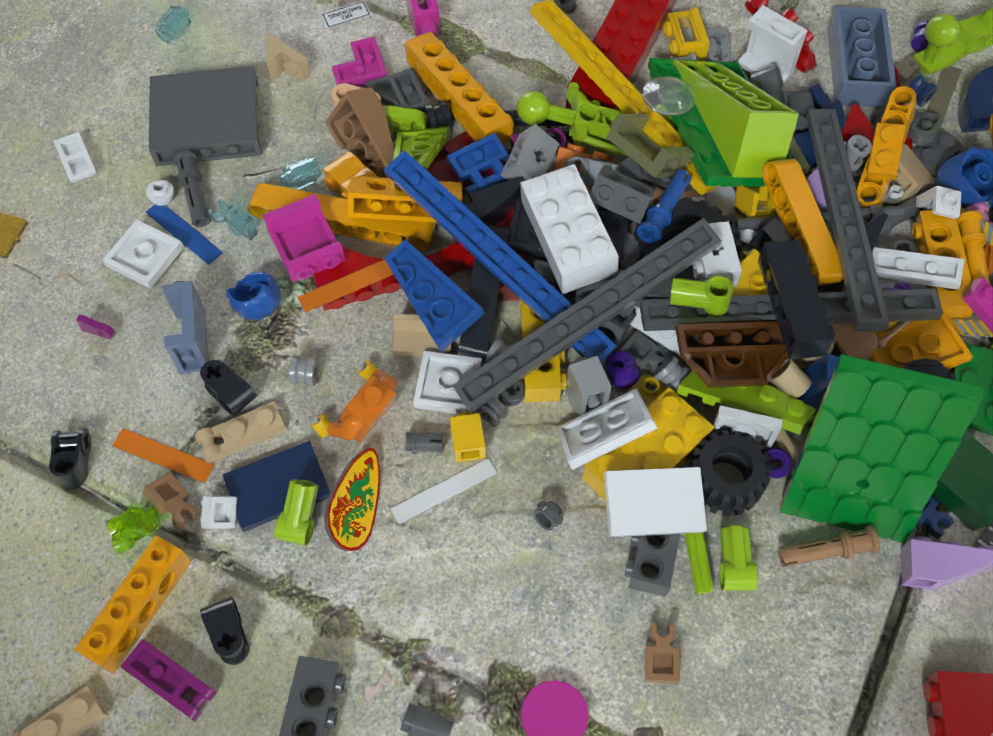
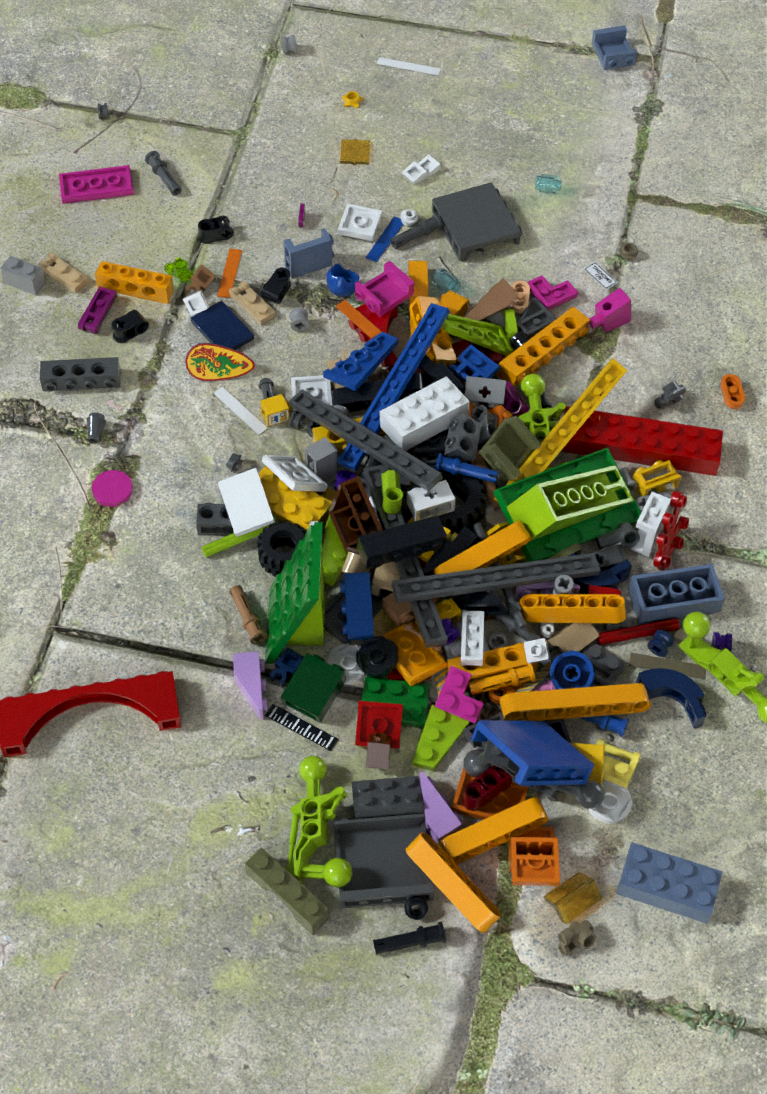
camera: 75 degrees right, 5 degrees down
(238, 221) = (399, 256): clear light blue plate -> none
(283, 57) = (538, 247): tan slope -> none
(296, 520) = (208, 335): lime piece -> none
(364, 409) = (282, 353): orange torso -> none
(661, 660) = (154, 534): medium nougat plate -> none
(669, 95) = (565, 465): clear dish -> none
(737, 569) = (220, 565): lime piece -> none
(886, 151) = (563, 599): light orange plate -> none
(925, 128) = (620, 646): dark grey plate -> none

